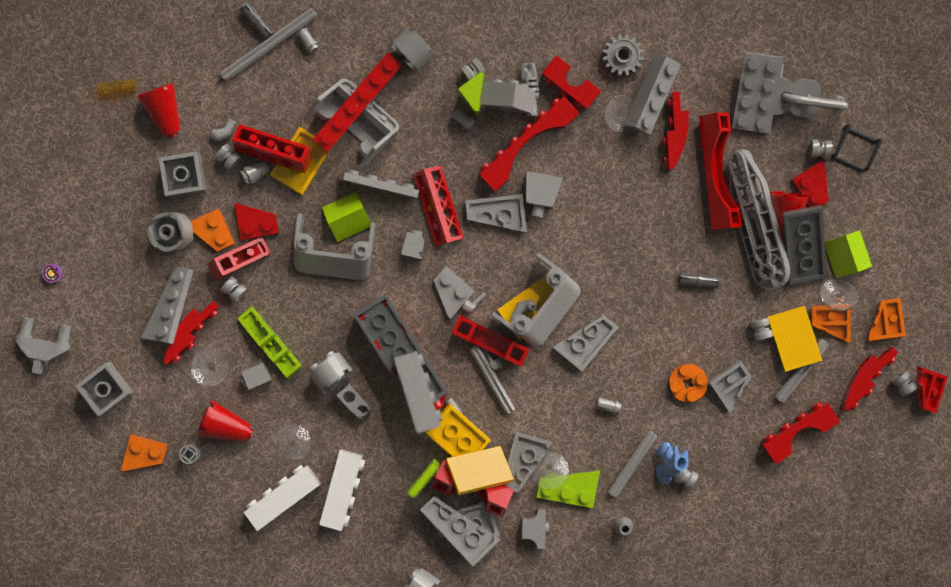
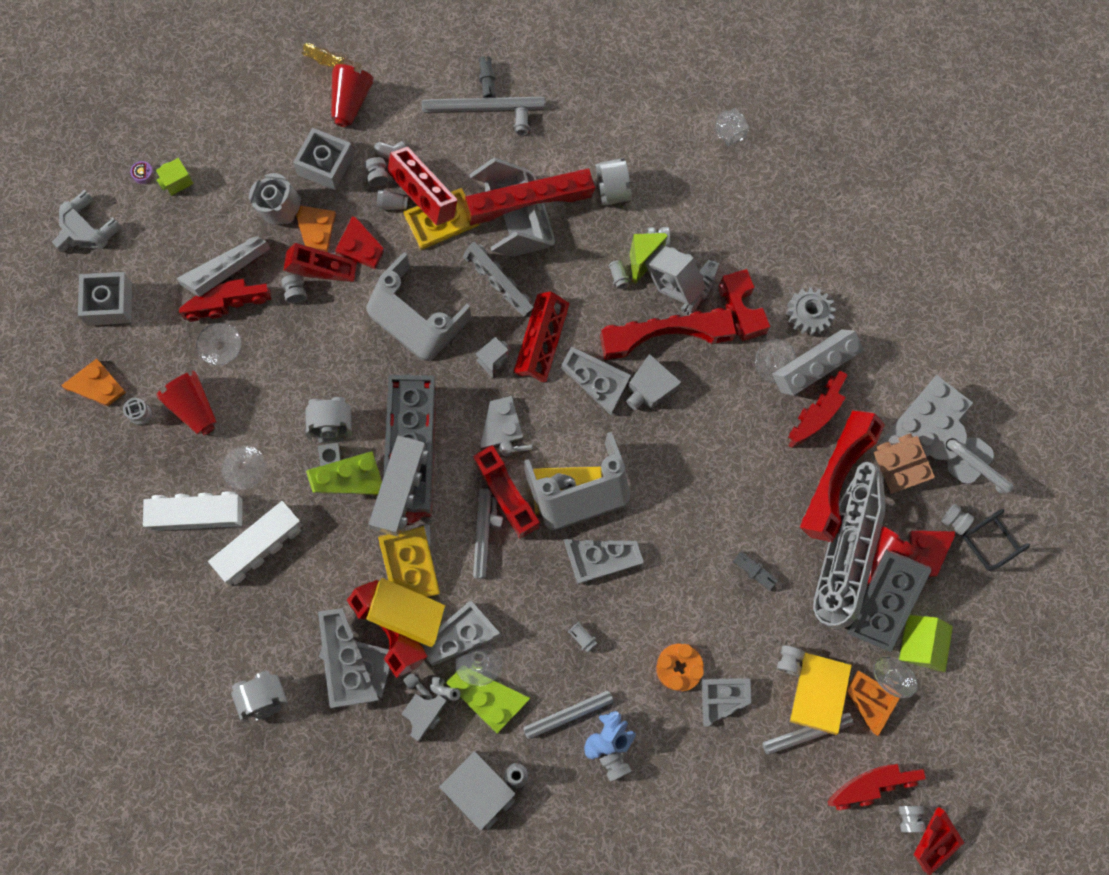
camera: 30 degrees right, 15 degrees down
(79, 262) = (173, 177): none -> lime brick
(255, 376) = (255, 380): light grey brick -> none
(270, 342) = (292, 359): lime slope -> none
(346, 216) = (447, 292): lime slope -> none
(372, 403) = (348, 476): none -> lime wing
(423, 478) = (343, 580): lime tile -> none
(513, 510) = (412, 681): none -> light grey hand
(538, 504) = (445, 692): none -> light grey arm
(605, 553) = (478, 791): none -> light grey brick
(758, 133) = (903, 463): none -> nougat plate
(779, 444) = (737, 797): red arch -> none
(887, 320) = (931, 739): orange wing -> none

